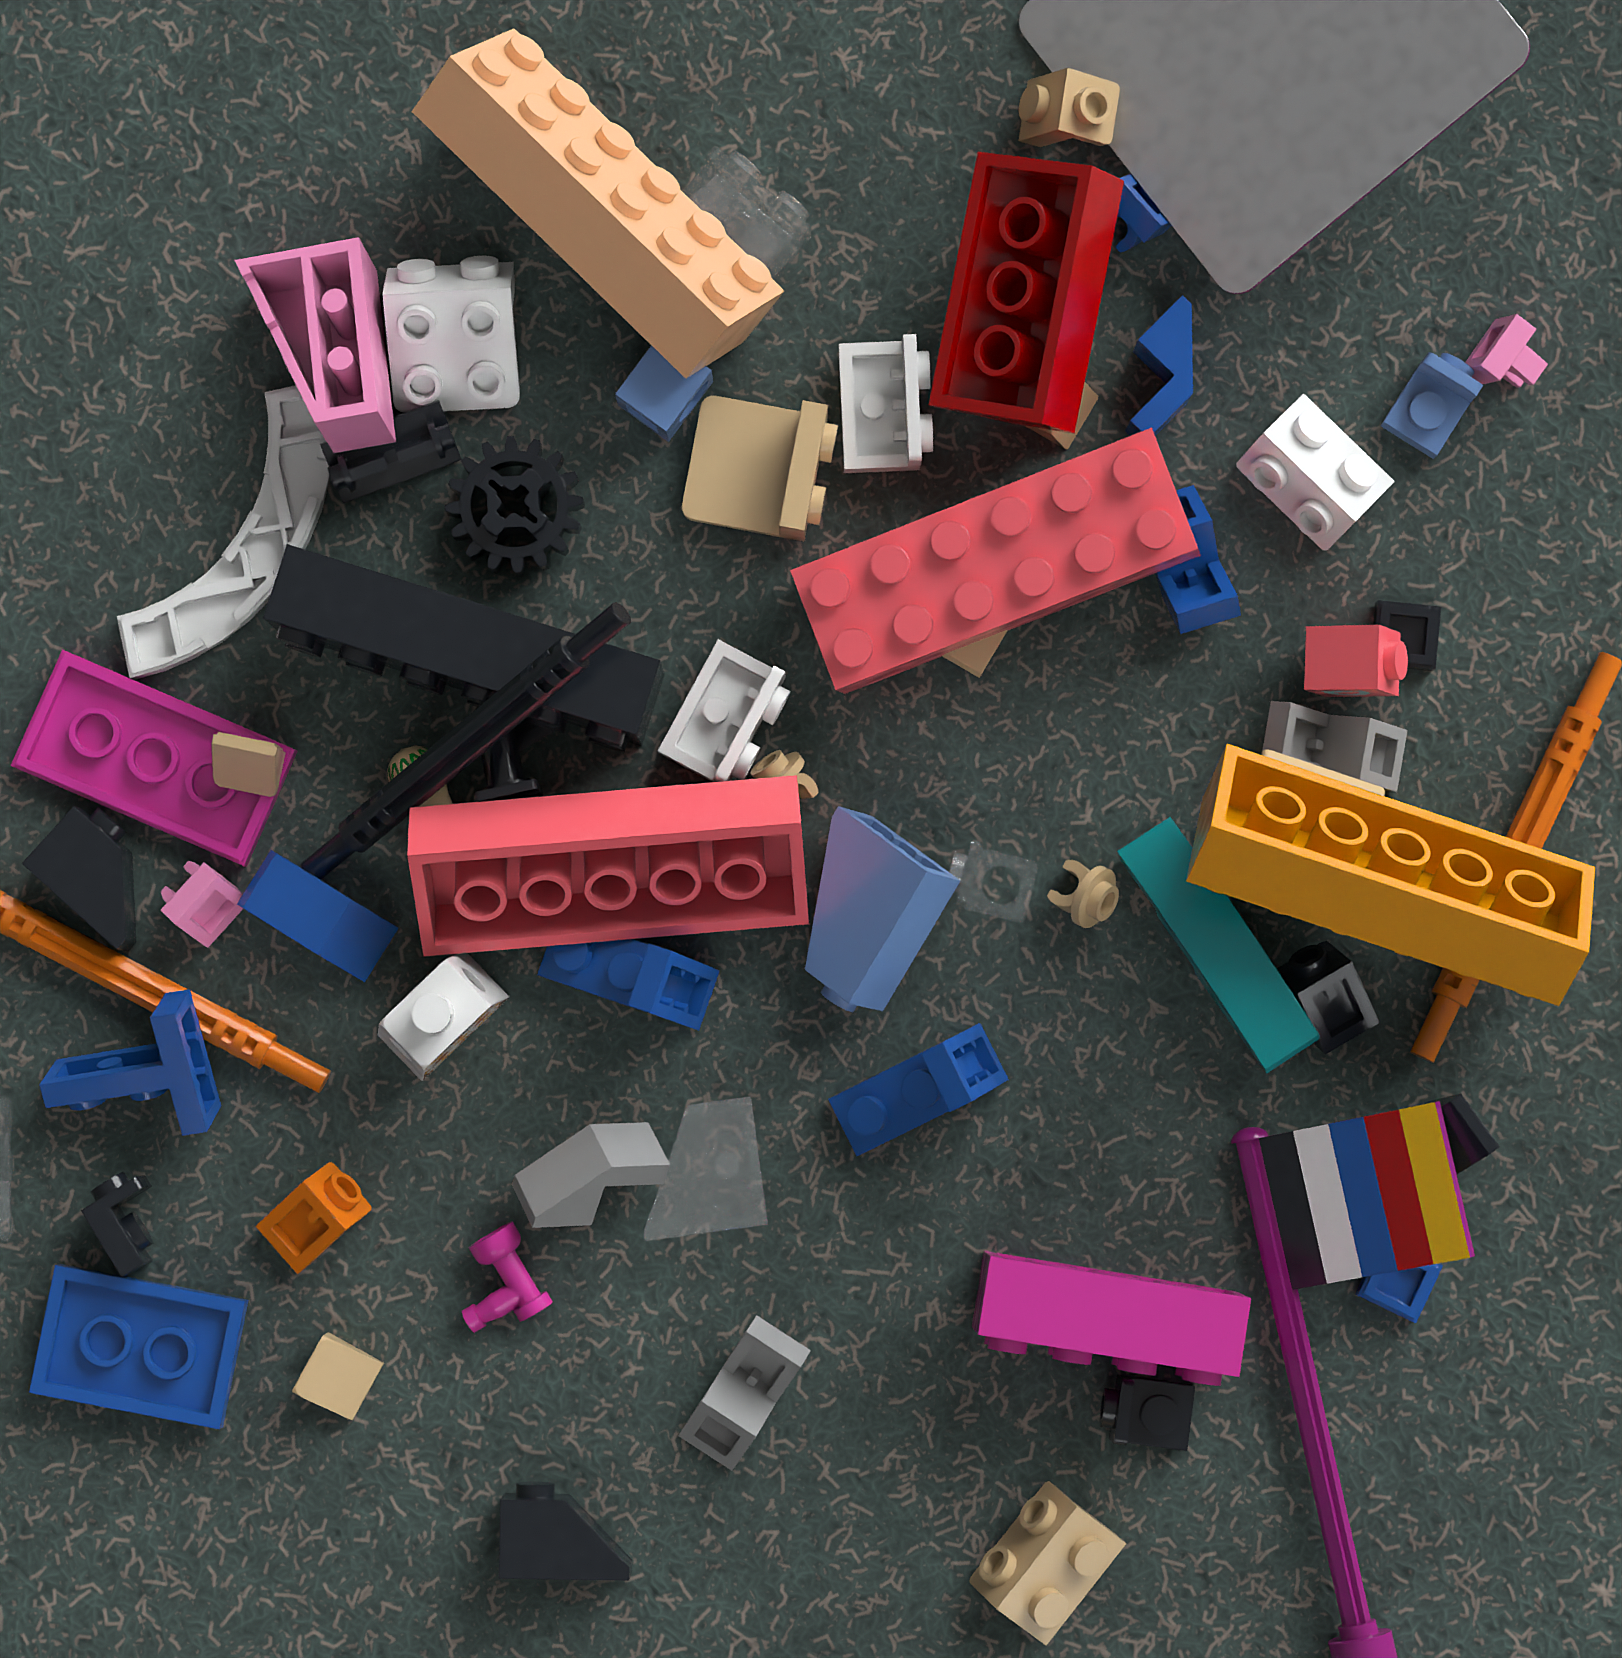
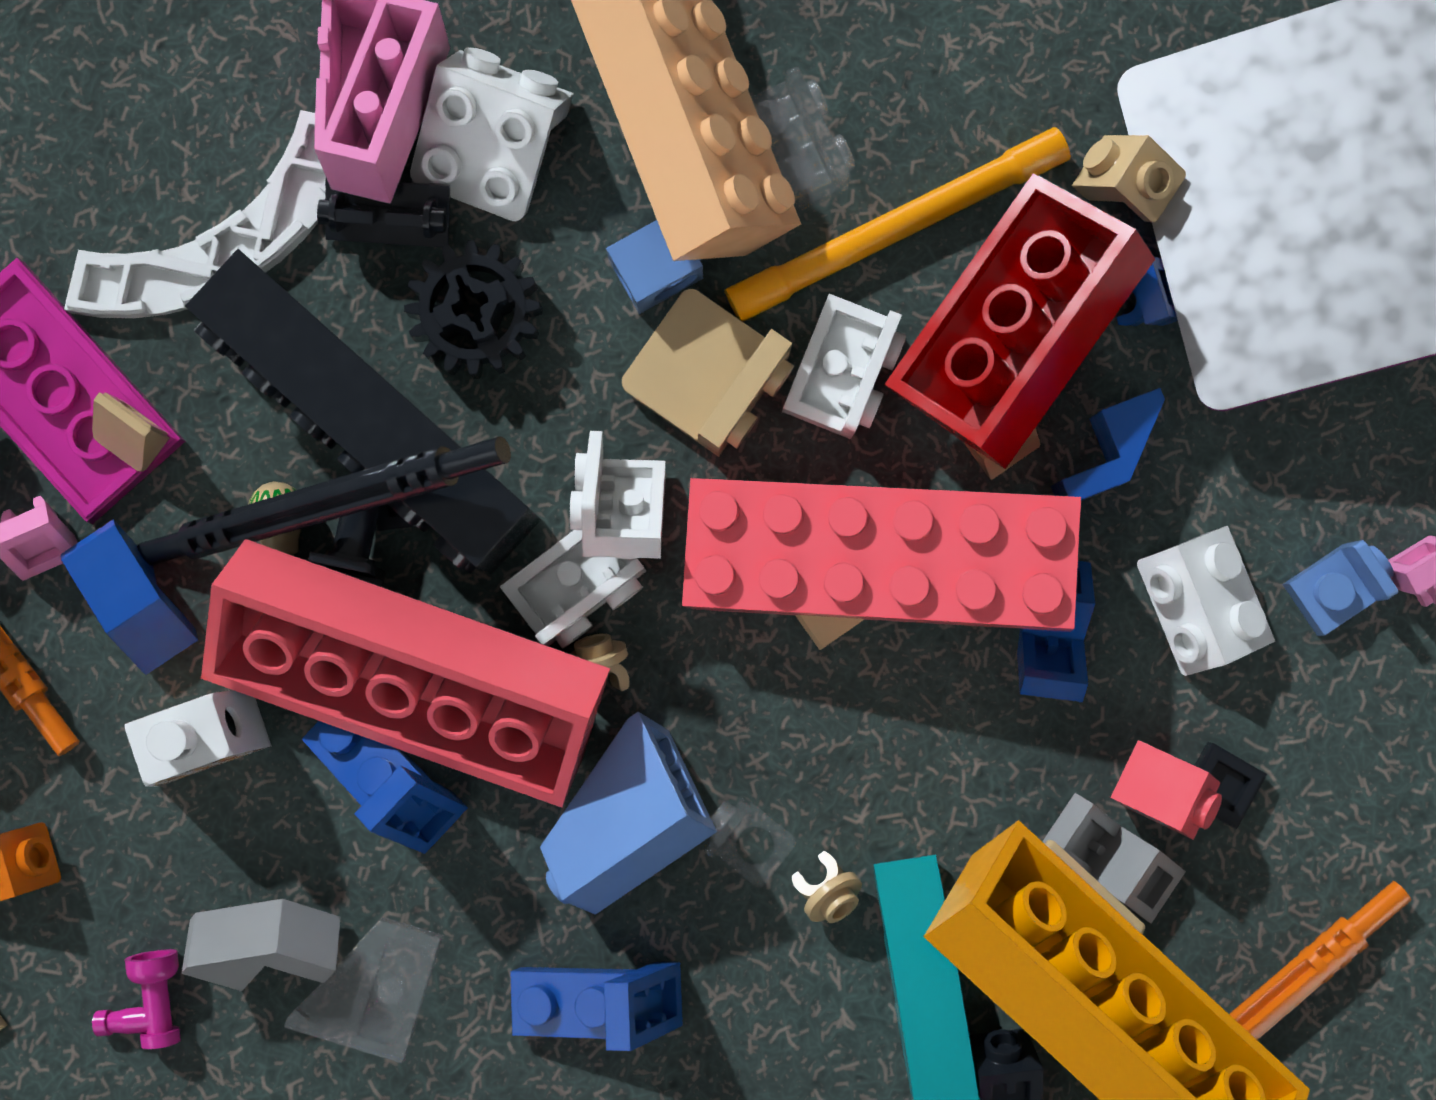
camera: 25 degrees right, 0 degrees up
(734, 624) = (617, 504): none -> white bracket
(956, 148) = (1013, 167): none -> light orange piece

